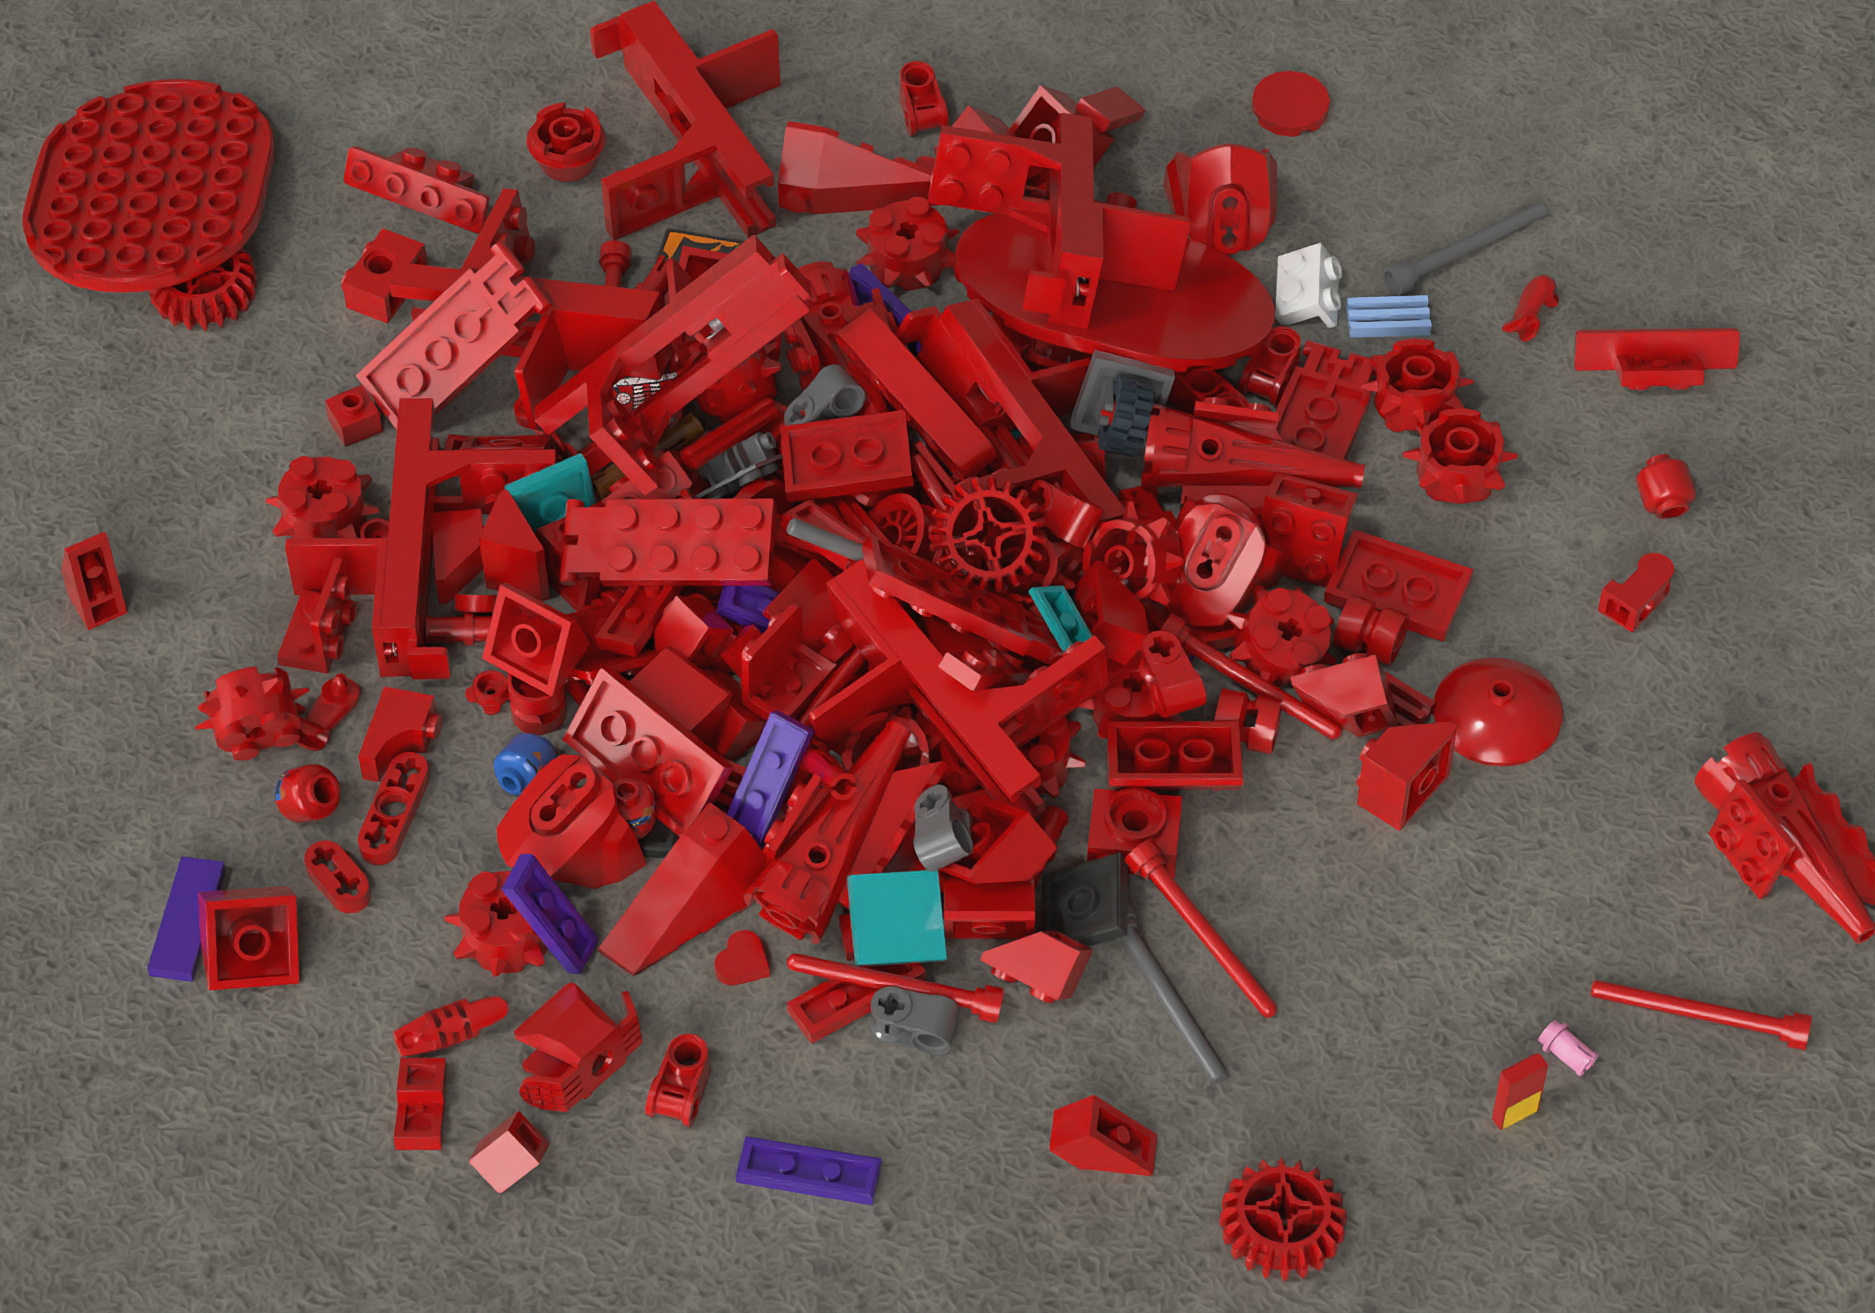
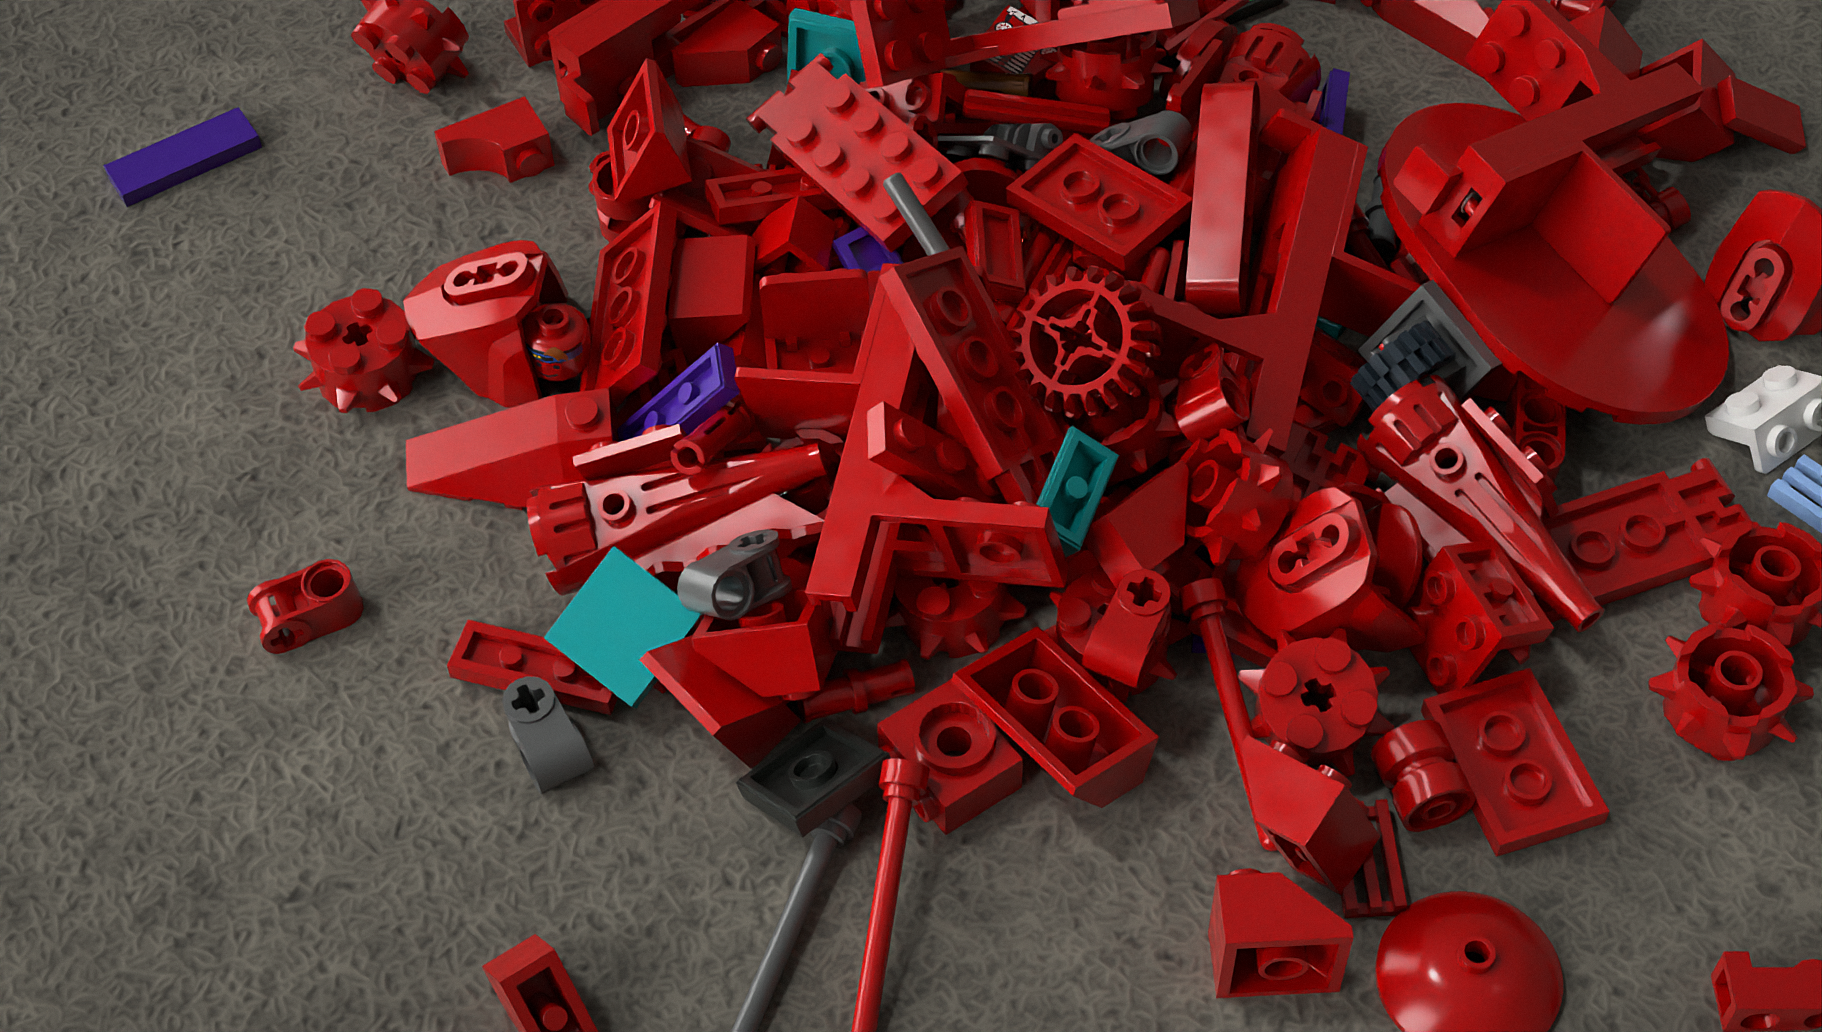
camera: 50 degrees right, 0 degrees up
(249, 937) = (184, 198): red slope -> none
(307, 793) = (370, 150): red head -> none
(334, 703) = (482, 92): red piece -> none
(344, 870) = (306, 214): red beam -> none
(392, 791) = (433, 184): red beam -> none
(420, 1104) = (133, 433): red slope -> none
(448, 1025) = (222, 397): red hinge -> none
(475, 602) = (692, 97): red tile -> none
(509, 1152) = (116, 535): panel -> none
(512, 551) = (754, 64): red slope -> none
(522, 761) = (560, 239): blue head -> none
(550, 913) = (374, 366): dark purple tile -> none
(569, 1043) = (267, 492): red piece -> none
(742, 960) = (498, 554): red tile -> none
(808, 1170) = (300, 783): dark purple tile -> none
(907, 244) = (1413, 77): red brick -> none
(982, 1001) = (621, 779): red piece -> none
(1044, 961) = (707, 794): slope -> none
(1237, 707) = (1189, 754): red wheel -> none
(1272, 366) = (1640, 451): red piece -> none

